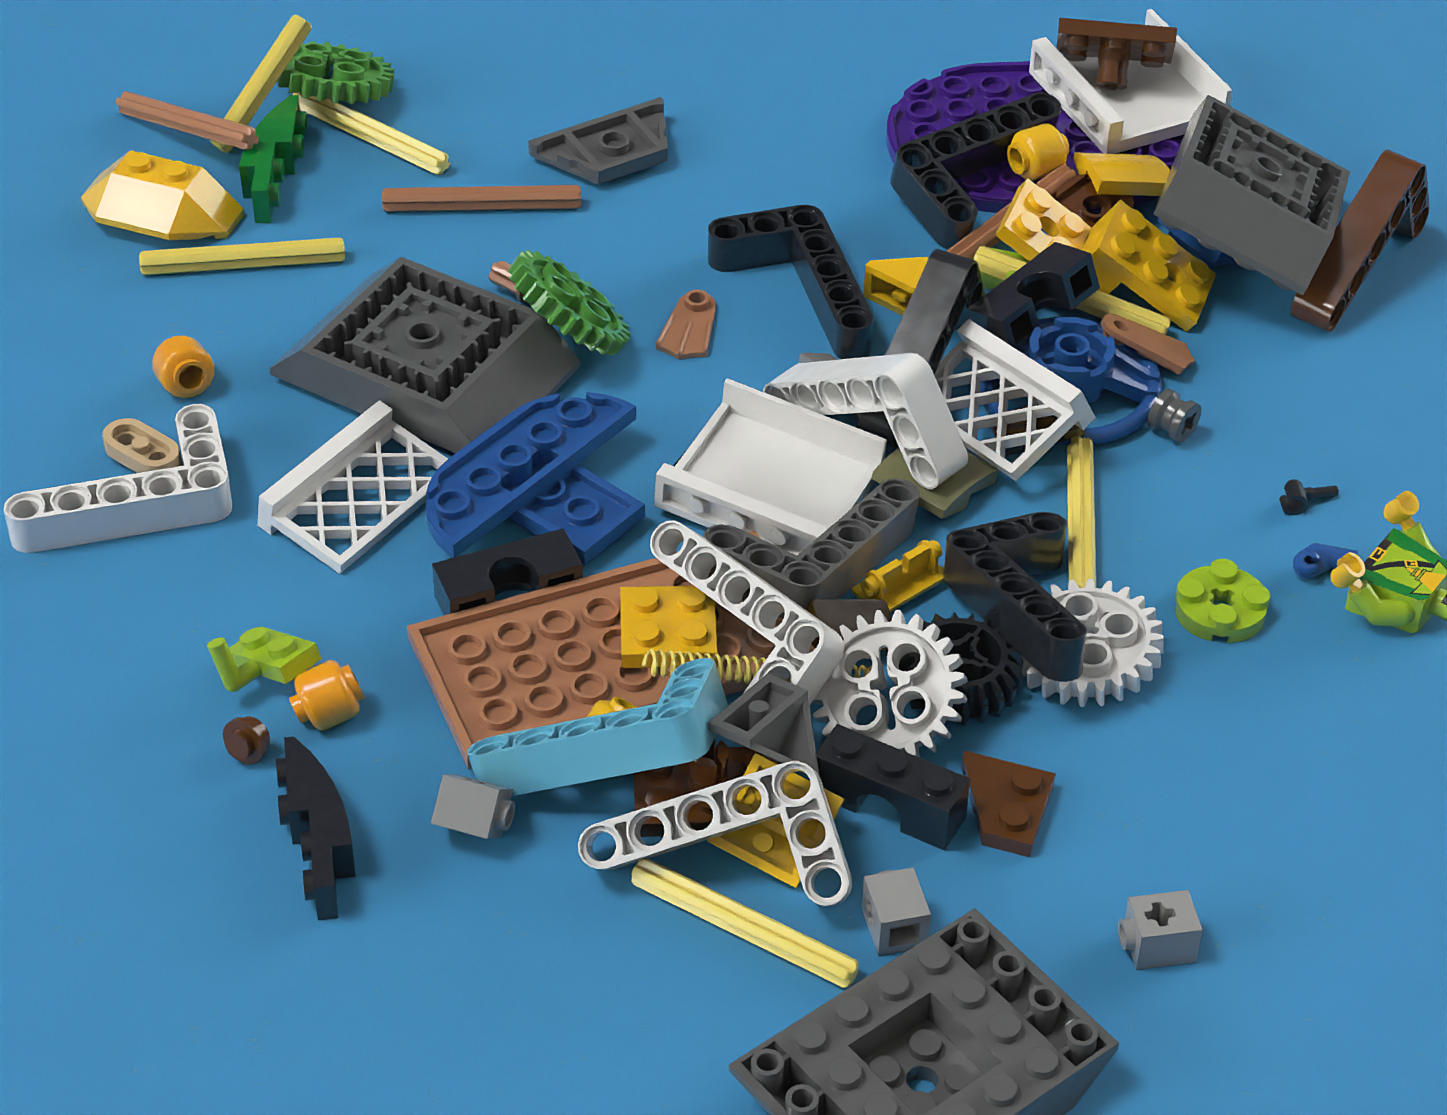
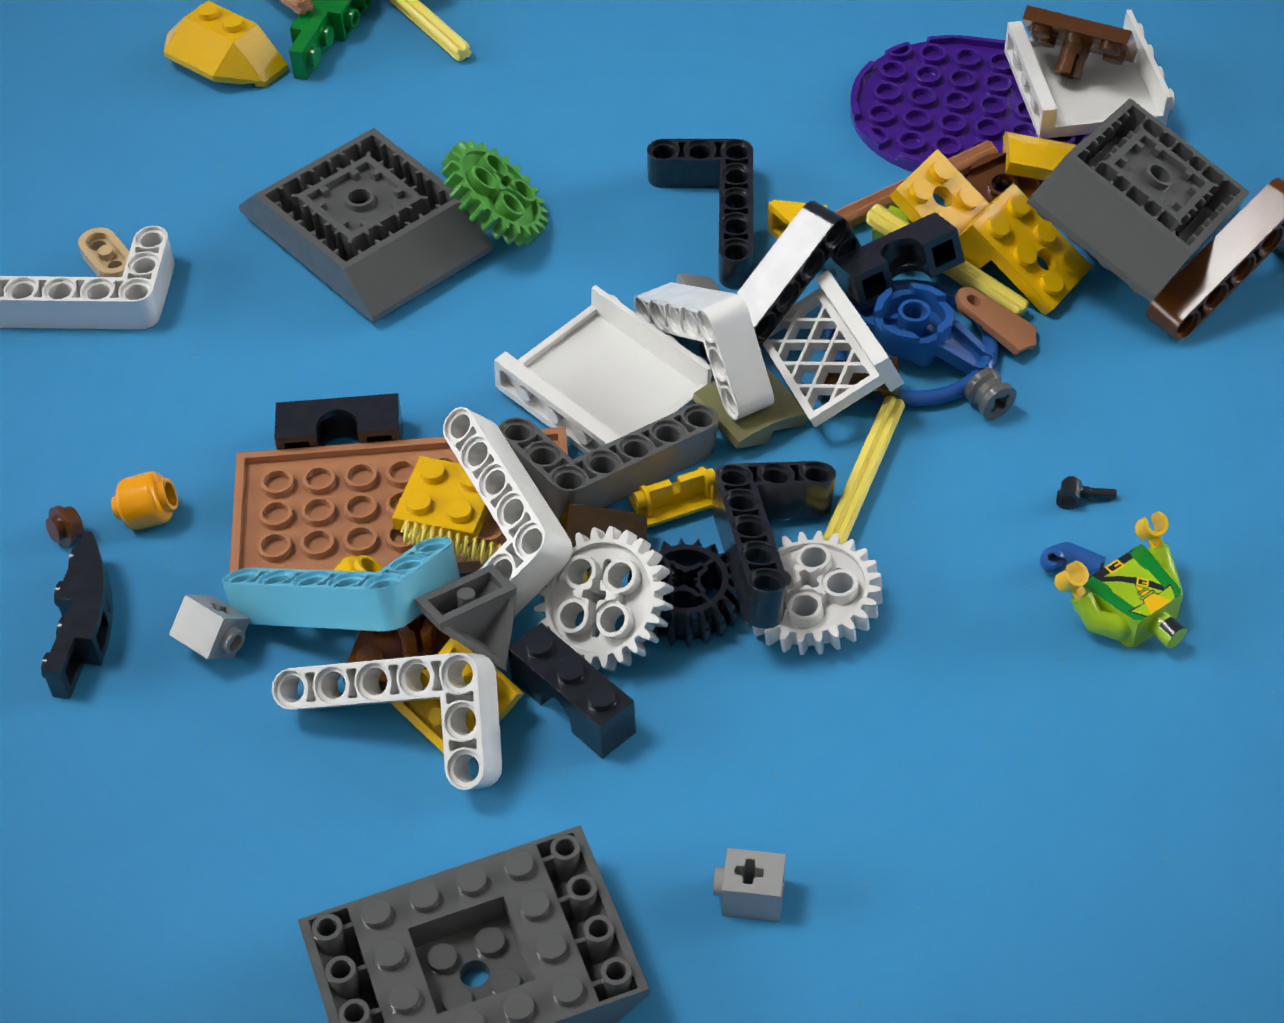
camera: 20 degrees right, 5 degrees up
(183, 366) = (170, 191): light orange head -> none
(242, 256) = (266, 105): light yellow axle -> none
(262, 654) = (112, 453): lime plate -> none
(326, 471) = (243, 302): white fence -> none
(481, 198) = (482, 87): nougat axle -> none
(532, 475) = (403, 343): blue plate -> none
(609, 144) = (609, 57): dark grey wing -> none
(689, 326) = (604, 231): nougat piece -> none
(745, 922) = (395, 787): light yellow axle -> none
(895, 910) = (522, 806): light grey brick -> none
(930, 164) = (871, 118): black beam -> none
(1007, 801) = (676, 727): reddish brown wing -> none
(1037, 151) = (970, 124): yellow head -> none
(1224, 583) = (962, 560): lime plate -> none

